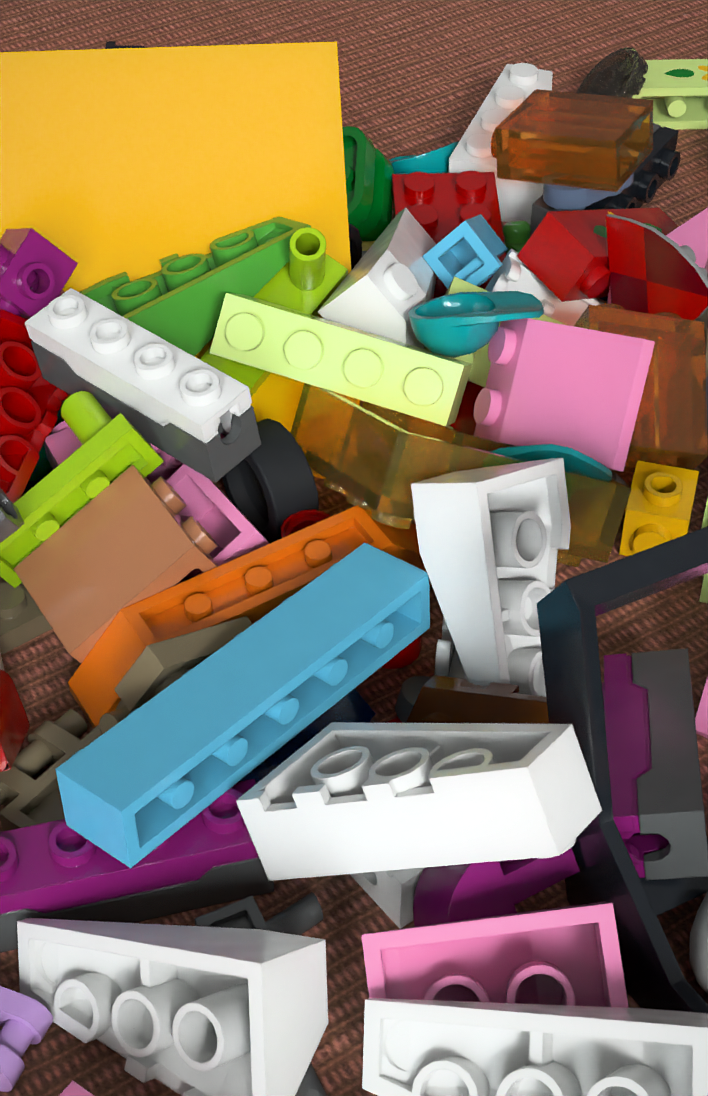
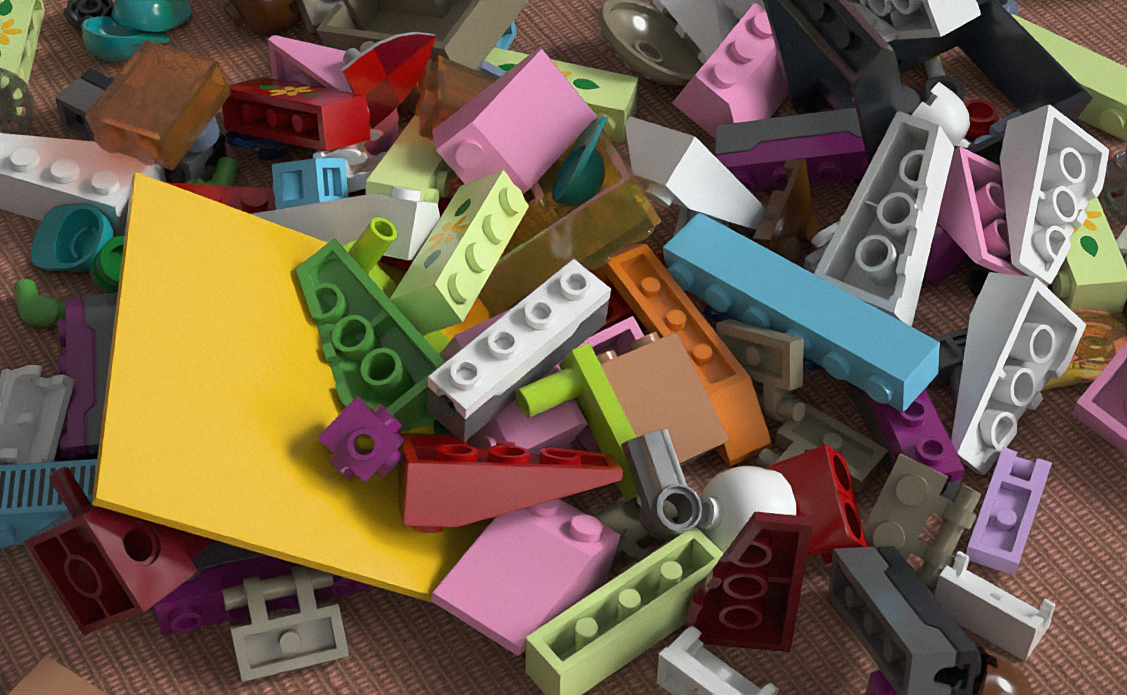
camera: 90 degrees left, 5 degrees up
(468, 320) = (448, 158): teal cap -> none

